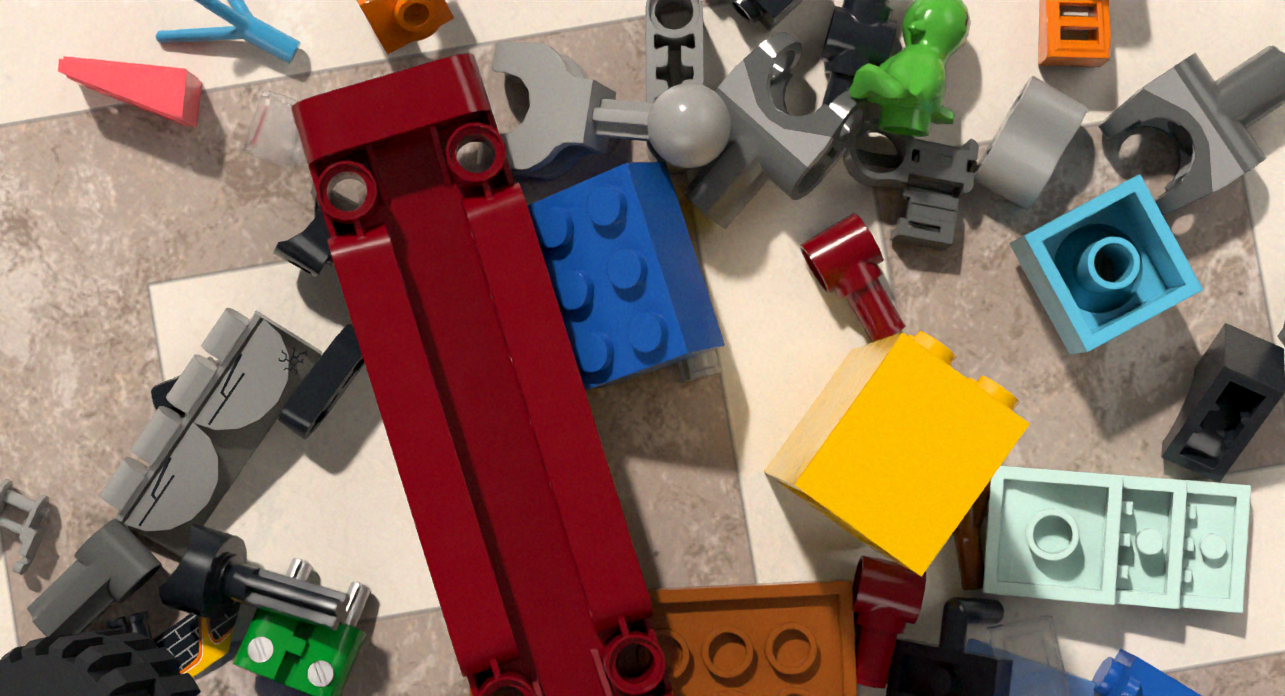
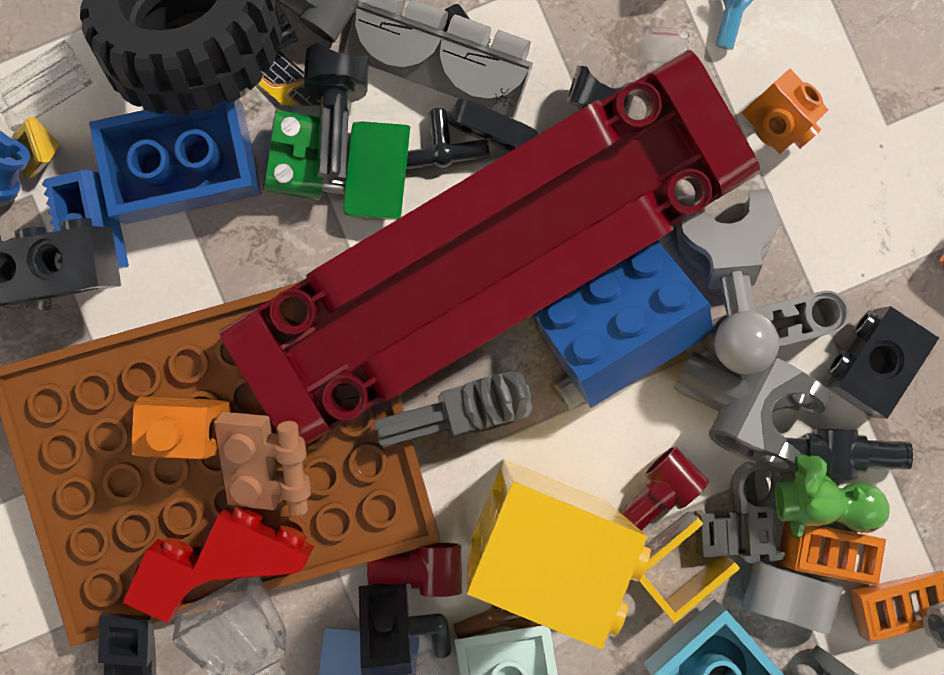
camera: 75 degrees right, 0 degrees up
(343, 455) = (442, 151): none -> black piece
(346, 549) = (376, 170): none -> green slope
(688, 513) = (462, 410): none -> dark grey gear
(975, 113) = (803, 553): none -> orange slope
(991, 265) = (699, 586): none -> yellow piece

